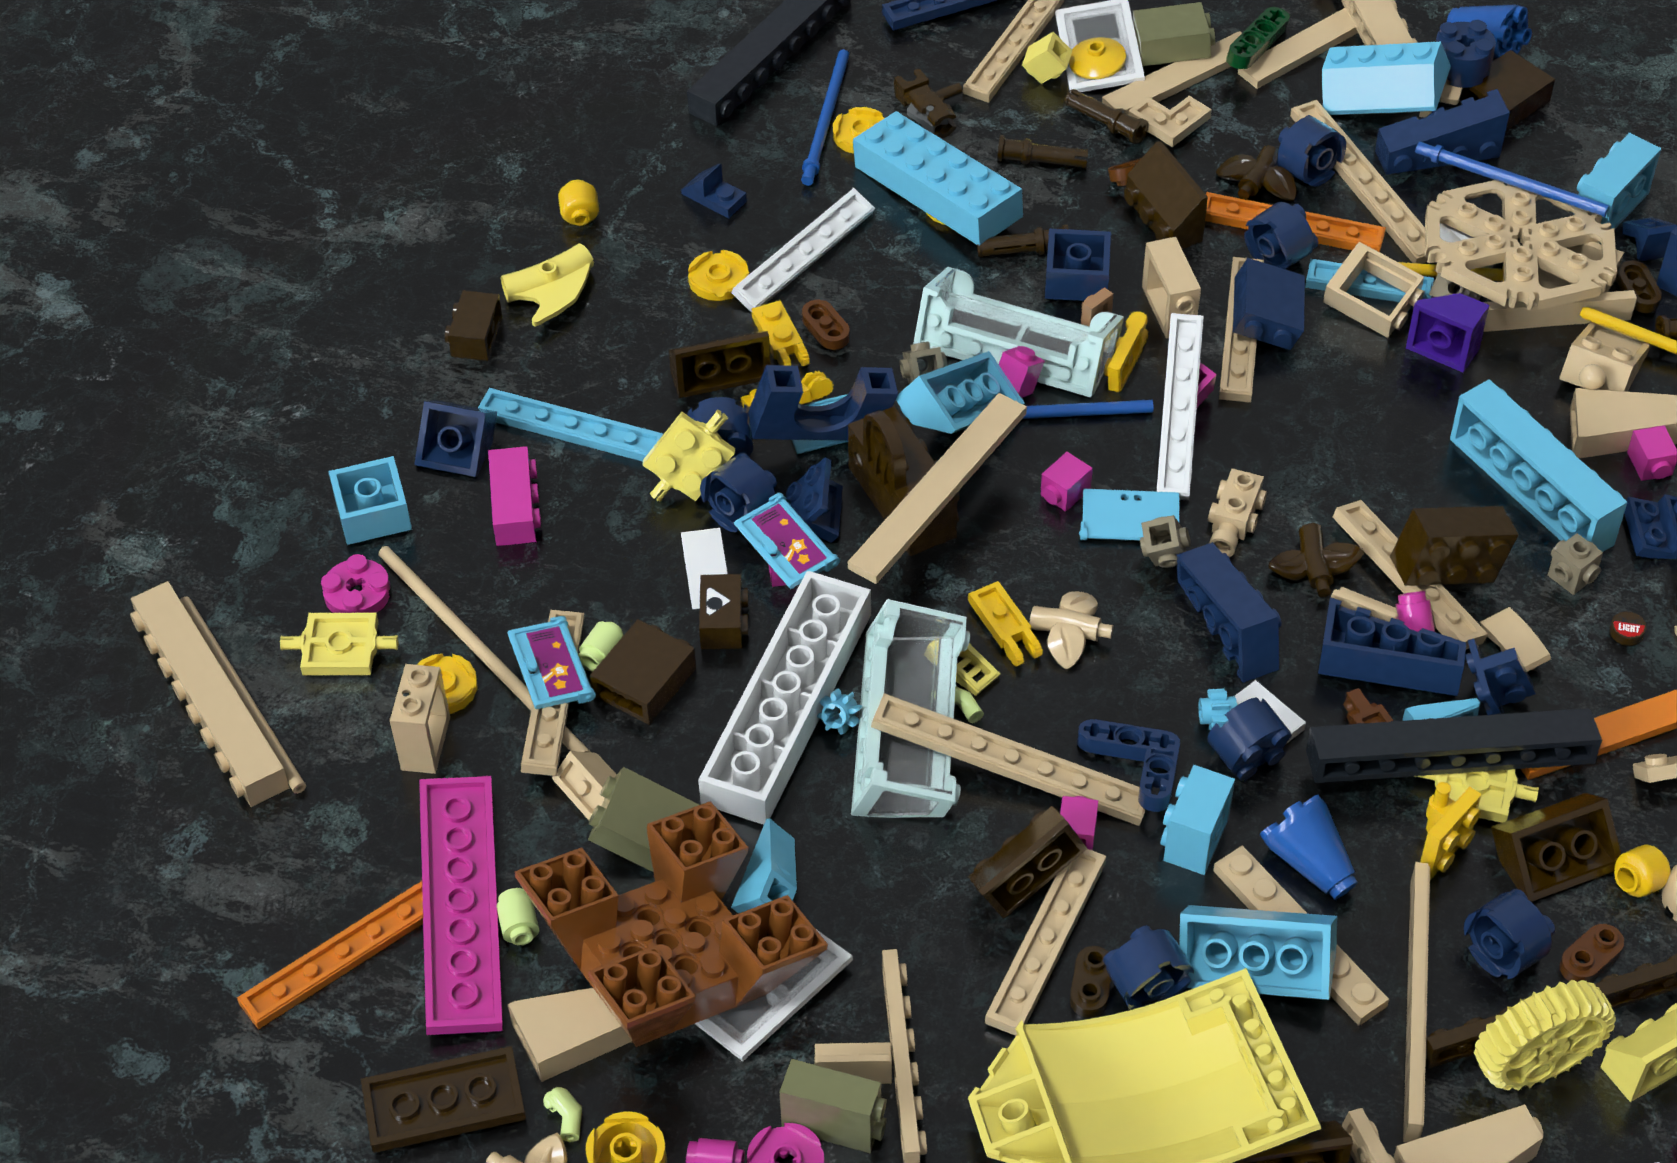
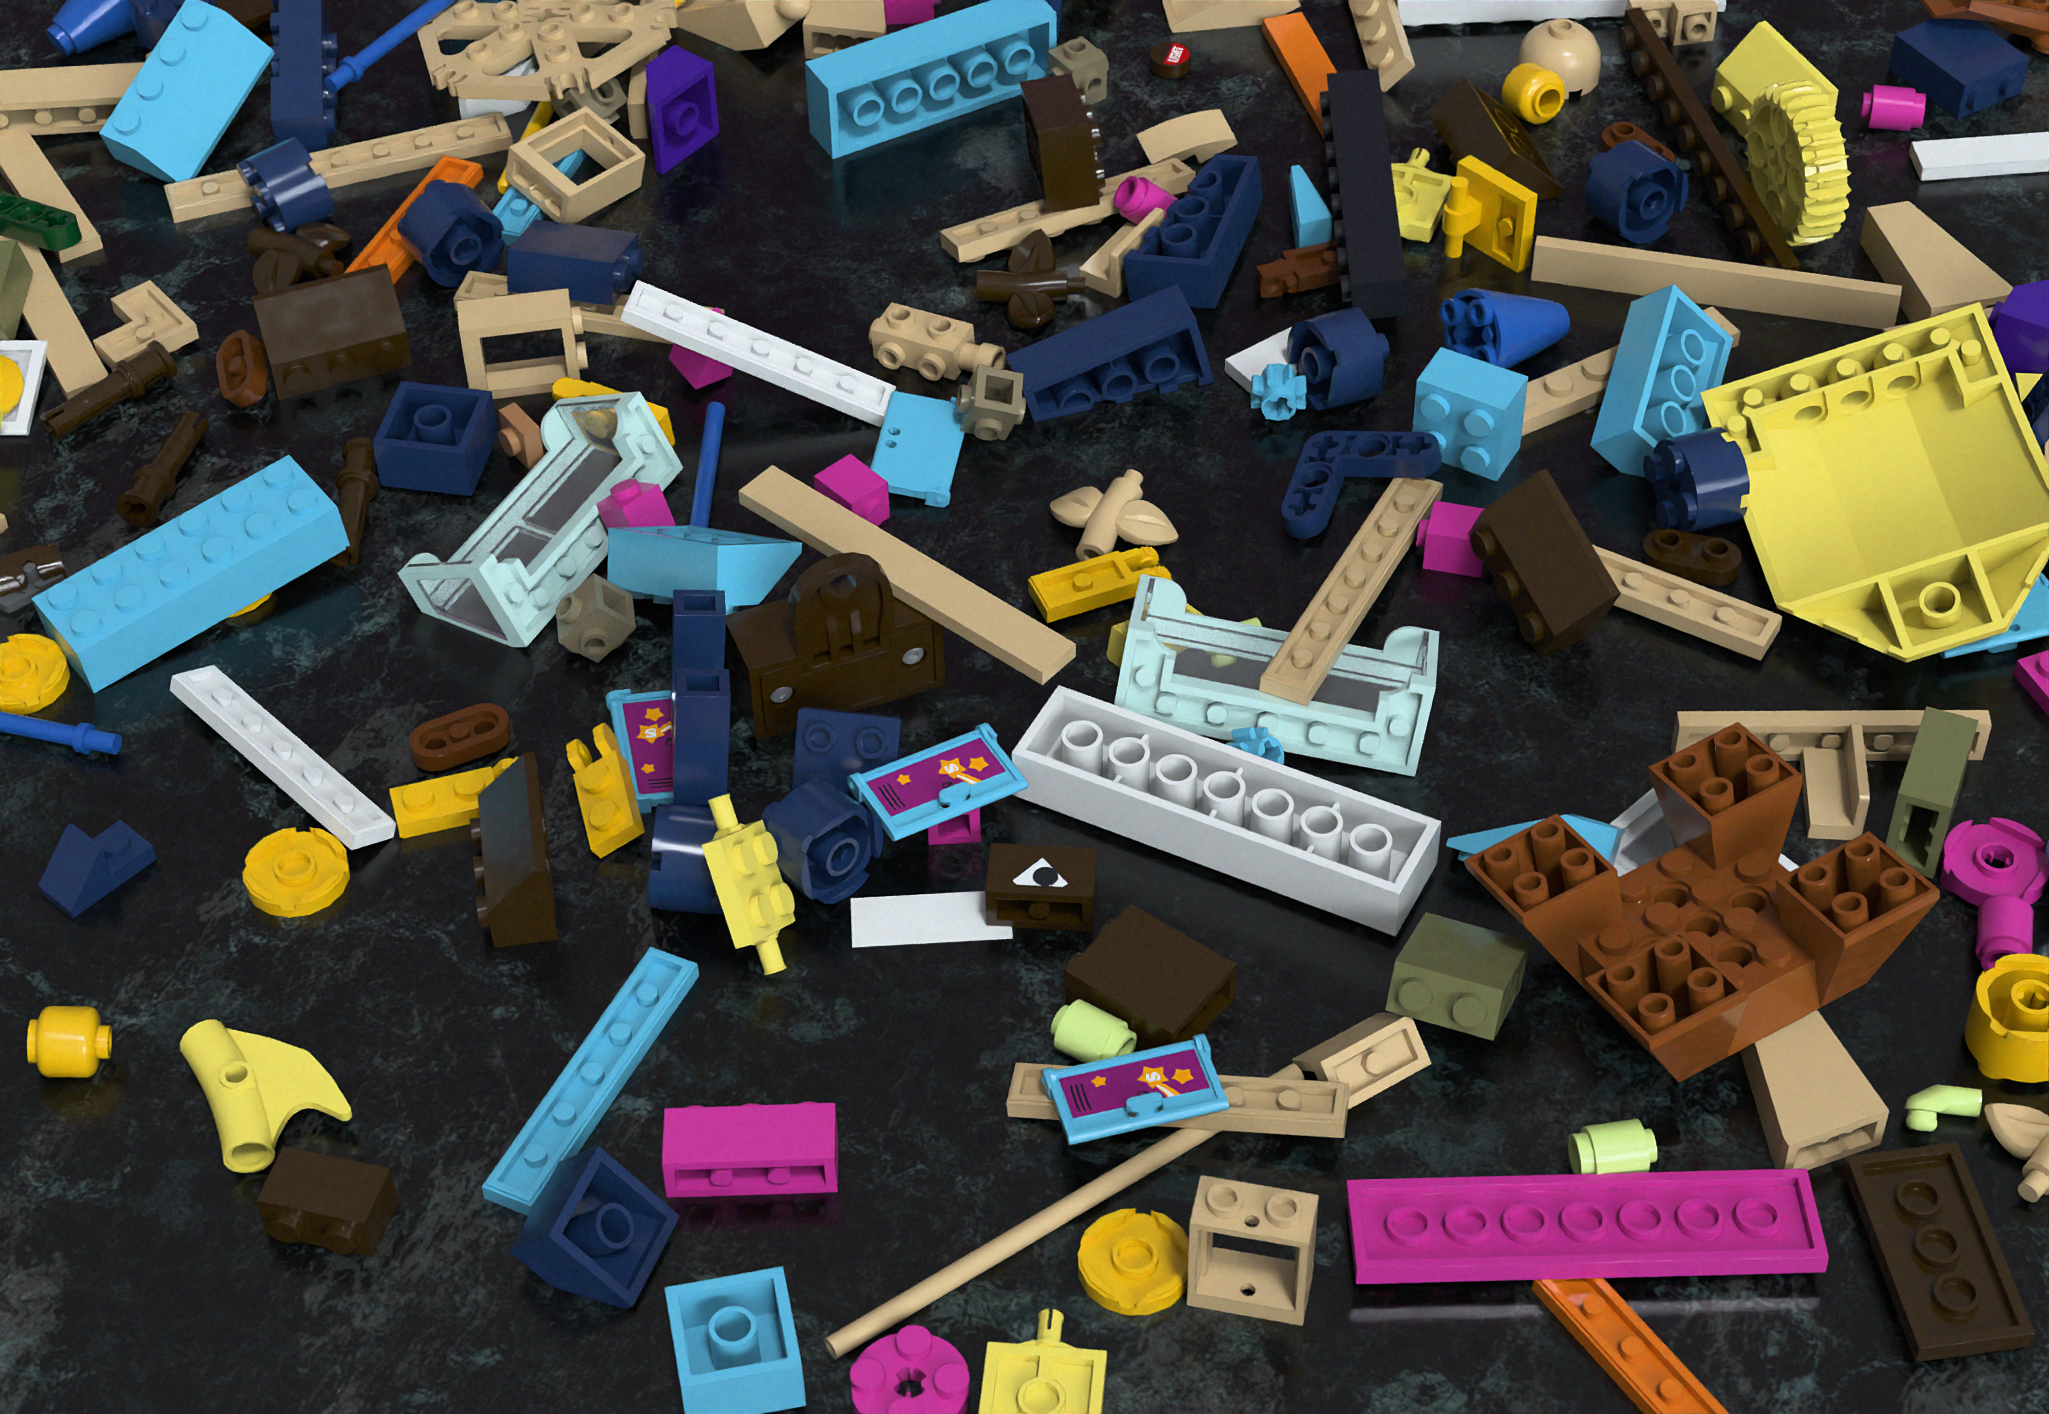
camera: 85 degrees left, 5 degrees down
(1499, 678) = (1271, 143): dark blue bracket -> none

